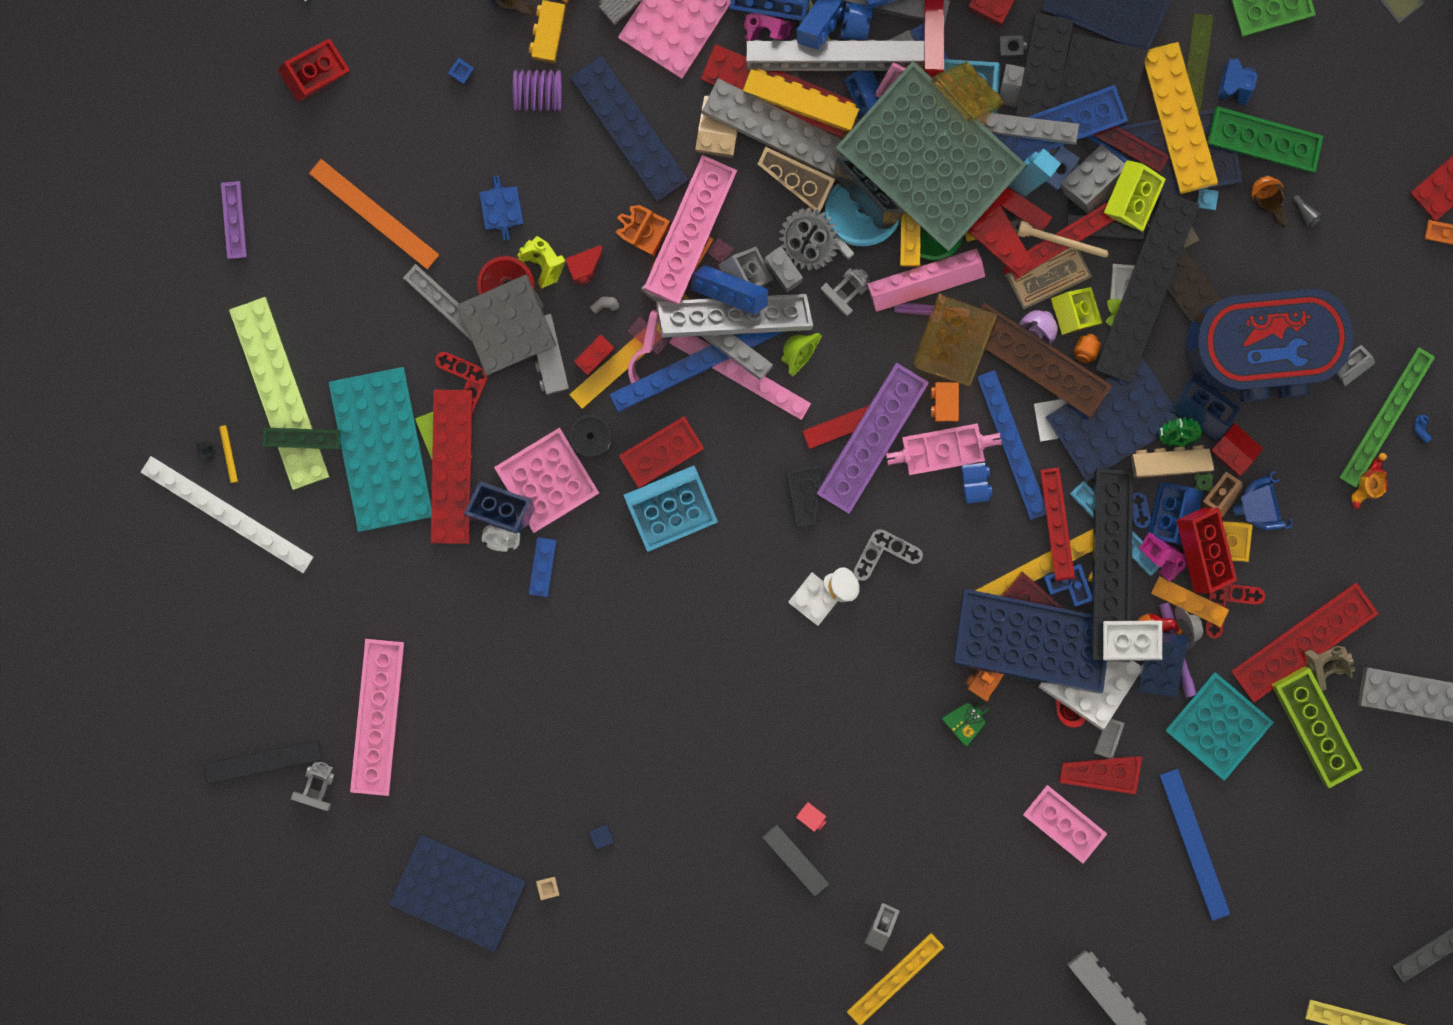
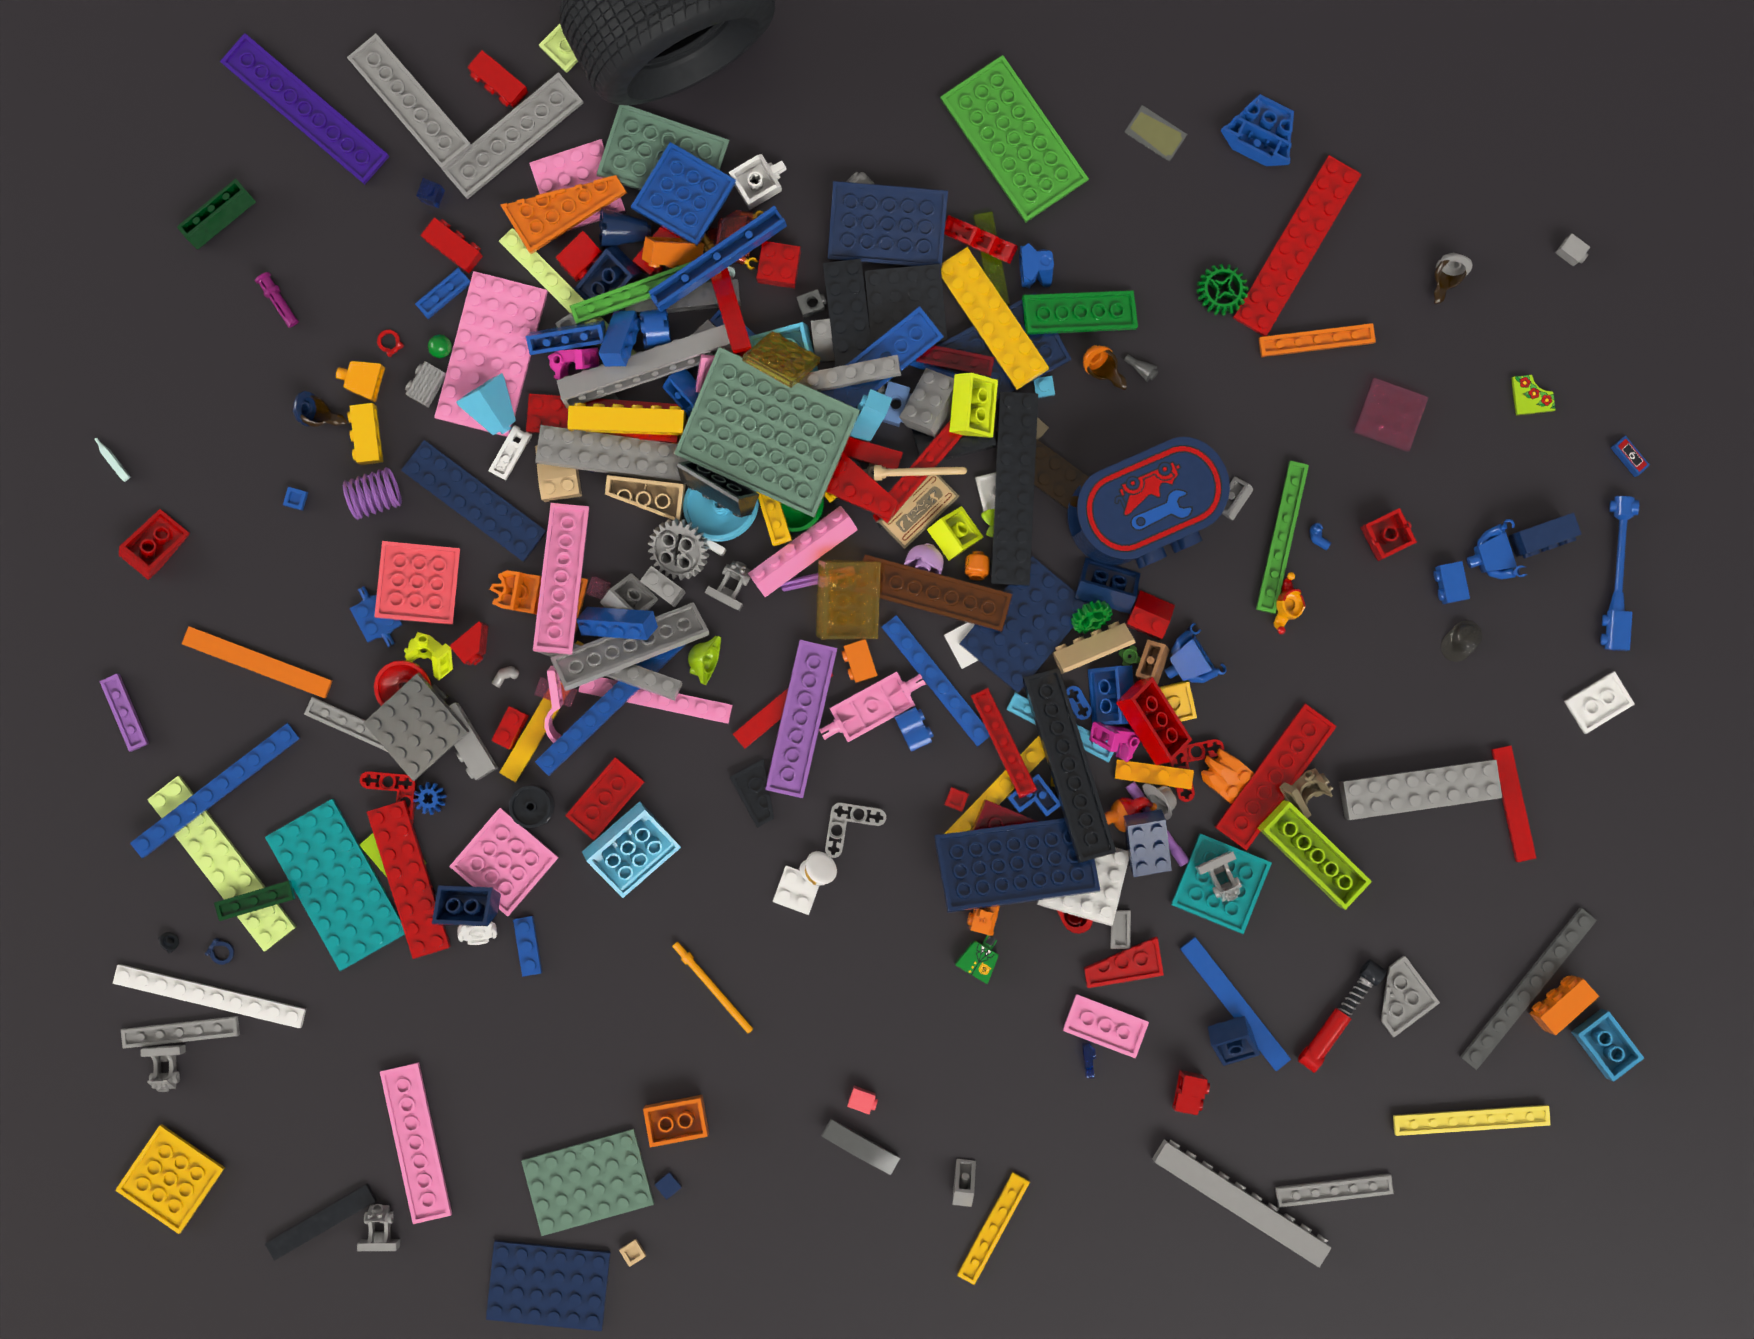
camera: 20 degrees left, 0 degrees up
(135, 674) = (170, 1179): none -> yellow plate
(165, 554) = (163, 1081): none -> light grey tile
(188, 539) = (180, 1032): none -> light grey tile
(228, 454) = (191, 937): yellow bar -> none
(242, 476) = (216, 942): none -> dark blue piece
(297, 322) = (215, 790): none -> blue plate
(502, 399) = (422, 799): none -> blue gear
(526, 808) = (587, 1182): none -> sand green plate
(551, 189) = (417, 583): none -> coral plate
(630, 777) = (676, 1121): none -> orange brick
(676, 44) = (490, 405): none -> medium azure slope
(678, 95) = (510, 453): none -> white plate
(690, 630) = (687, 958): none -> light orange bar
(994, 563) = (956, 799): none -> red tile
(1039, 847) = (1088, 1055): none -> clear blue plate
(1123, 912) = (1190, 1092): none -> red brick
(1132, 640) = (1112, 832): white tile -> none
(1181, 878) = (1233, 1040): none -> dark blue slope
(1192, 39) = (979, 239): none -> red slope
(1224, 734) = (1228, 890): none -> light grey tile
(1254, 916) = (1314, 1054): none -> piece
(1258, 625) = (1226, 775): none -> orange plate
(1358, 891) = (1405, 997): none -> light grey plate
(1402, 156) = (1216, 286): none -> green gear

